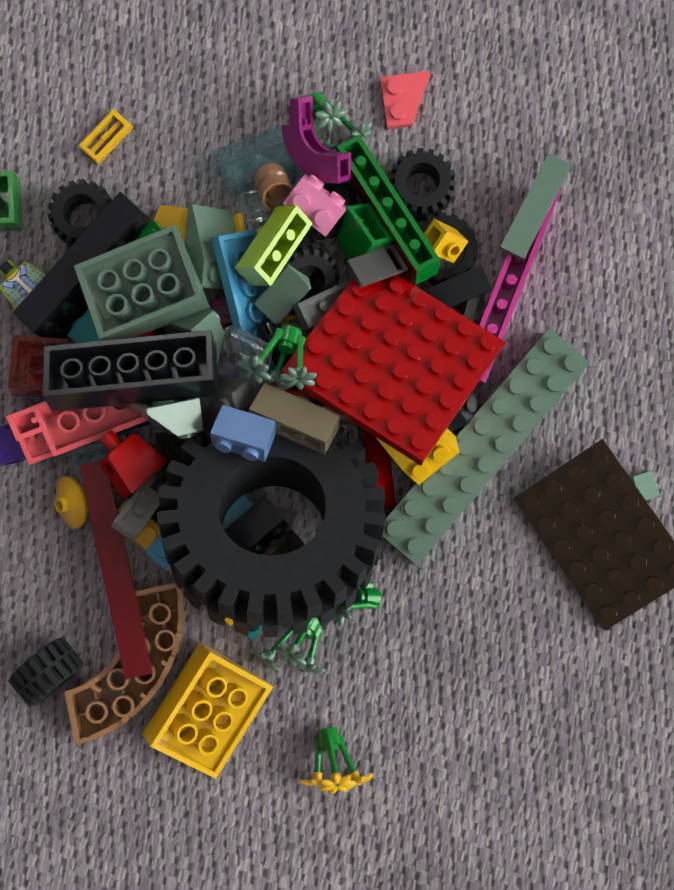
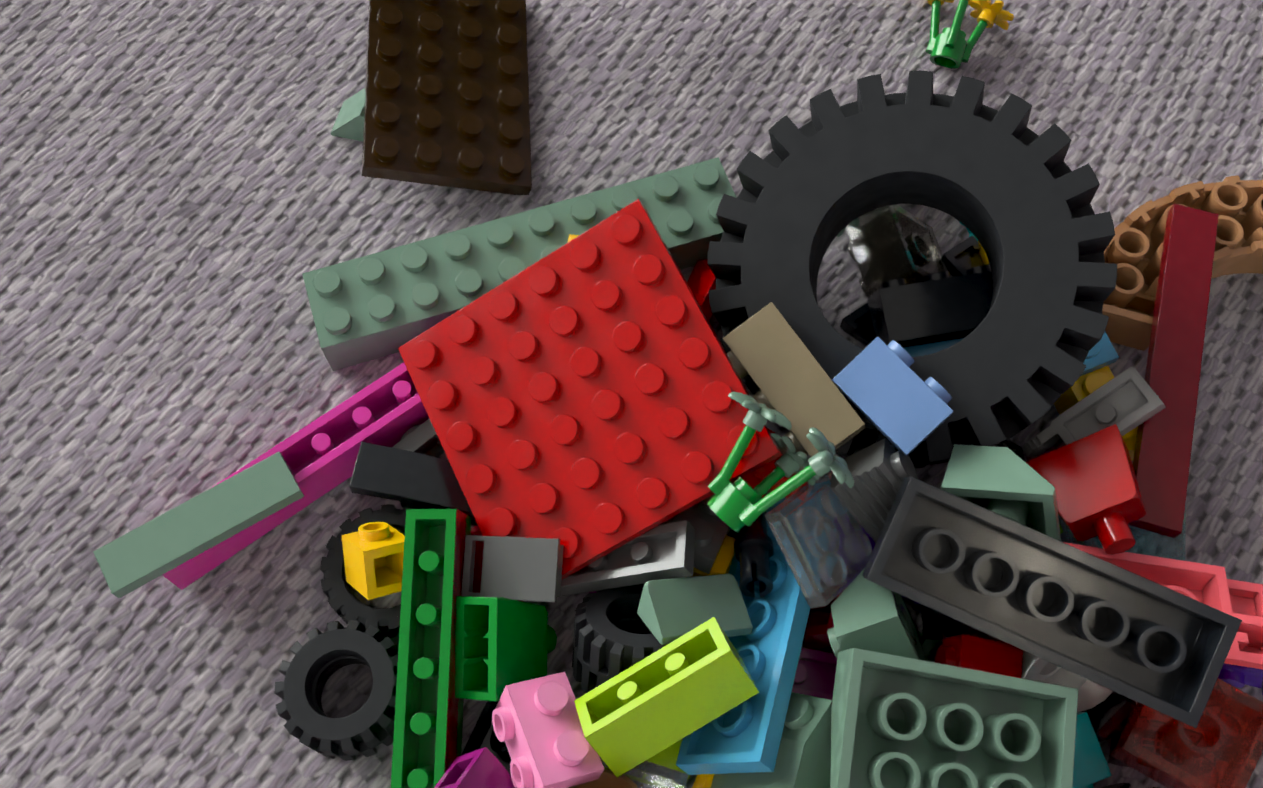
camera: 150 degrees left, 20 degrees down
(71, 502) = (1207, 508): yellow dish -> none
(206, 711) = (1131, 145): yellow slope -> none

